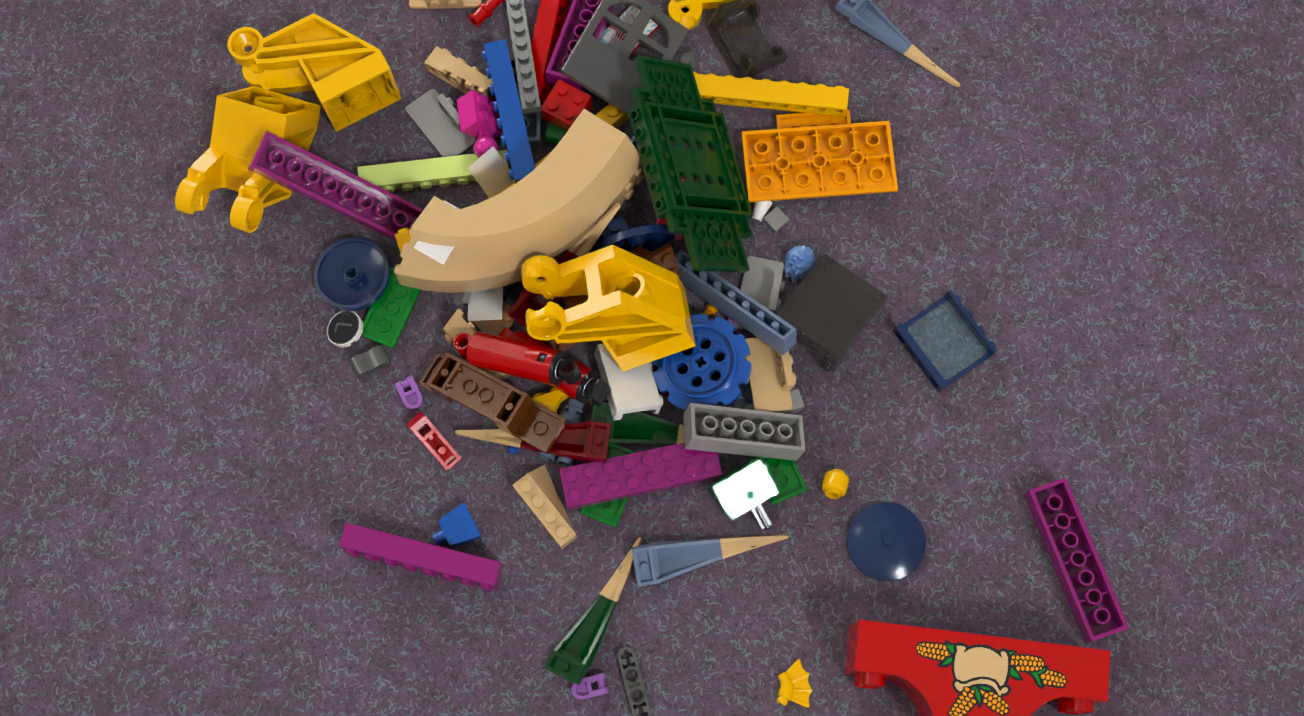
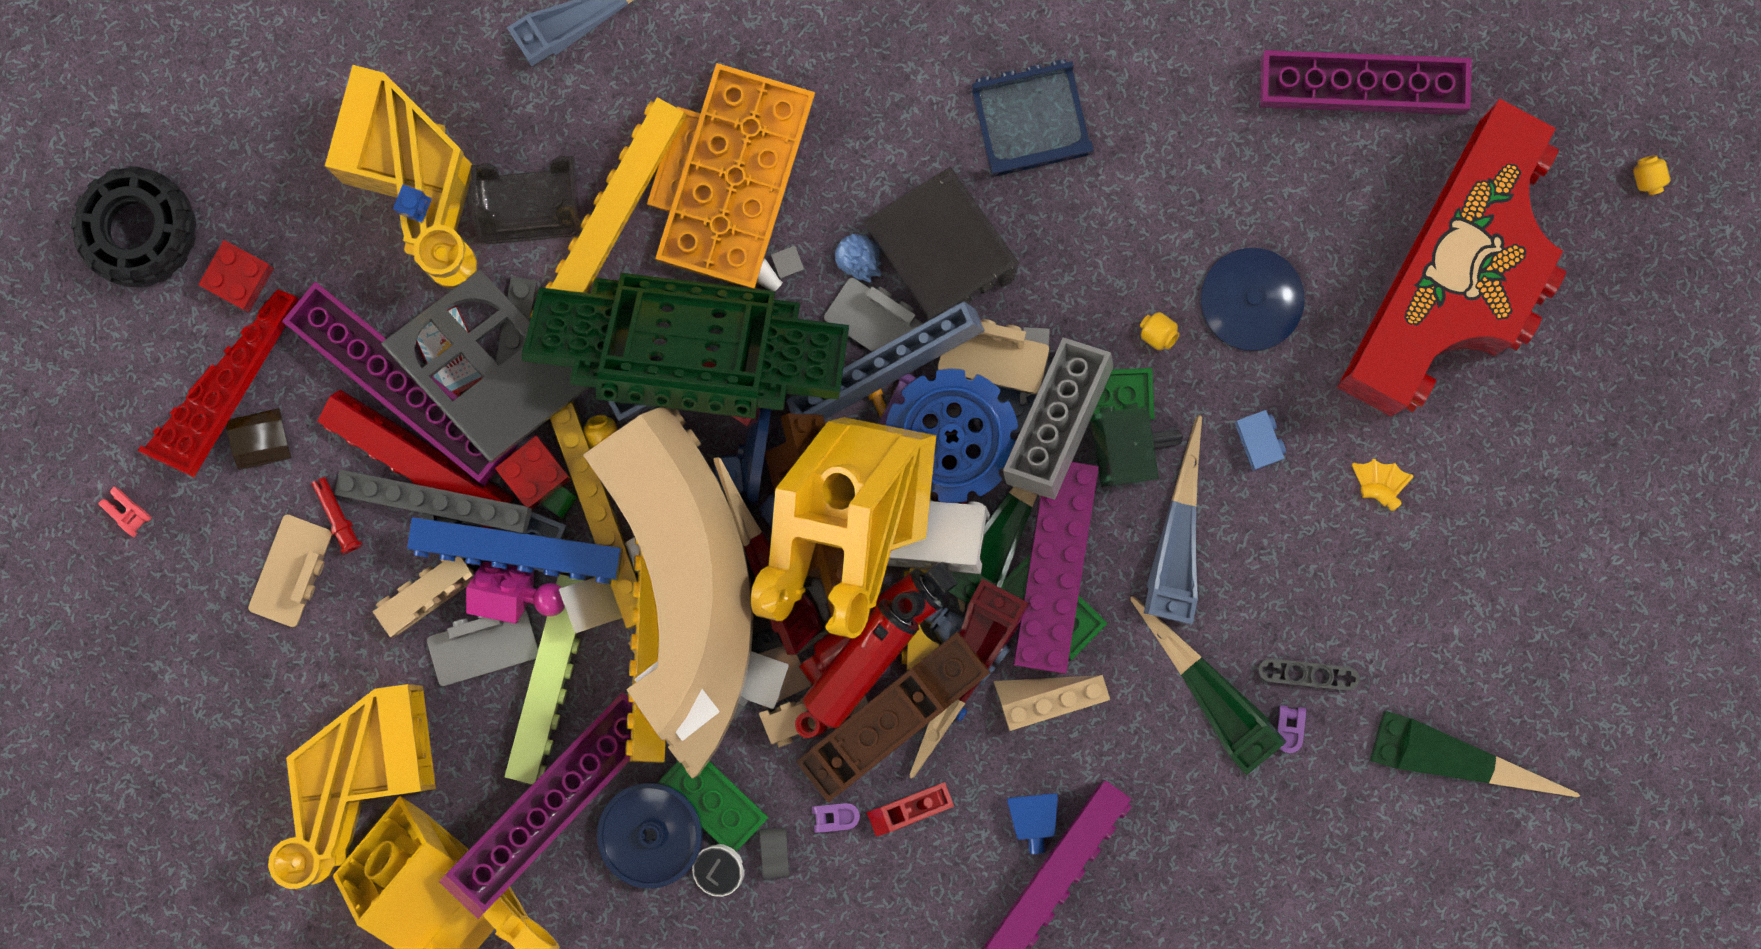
camera: 65 degrees left, 10 degrees up
(788, 584) = (1260, 440): none -> medium blue brick

